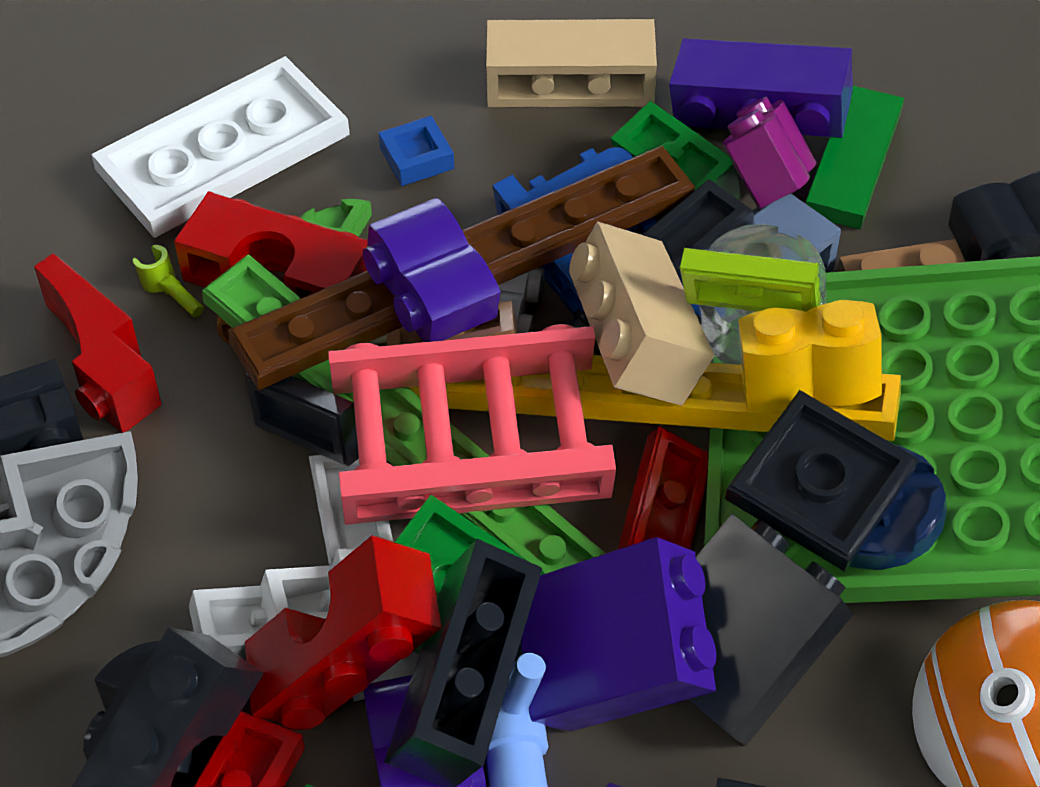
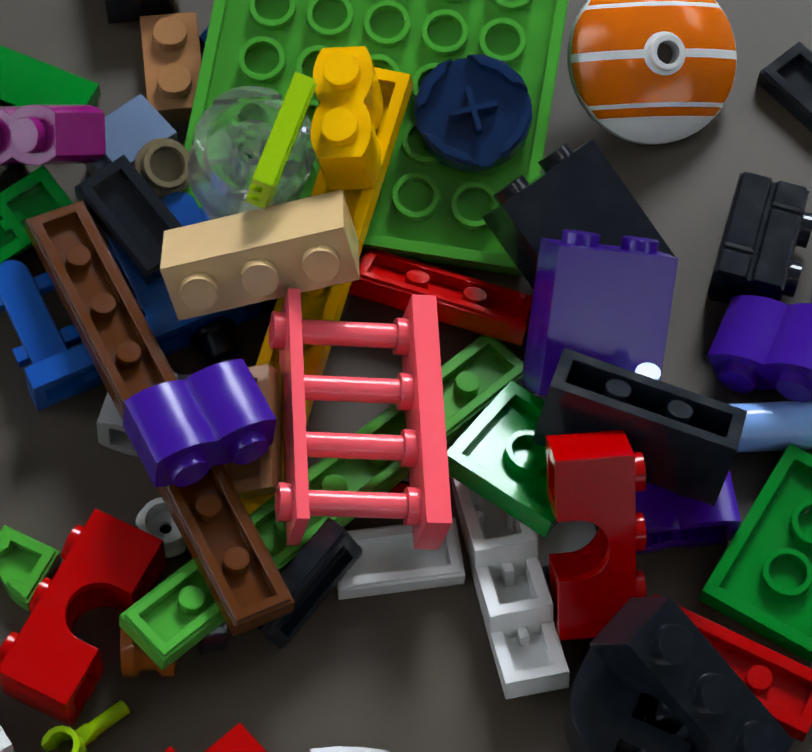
camera: 90 degrees left, 10 degrees up
(821, 480) = (465, 137): black tile -> none

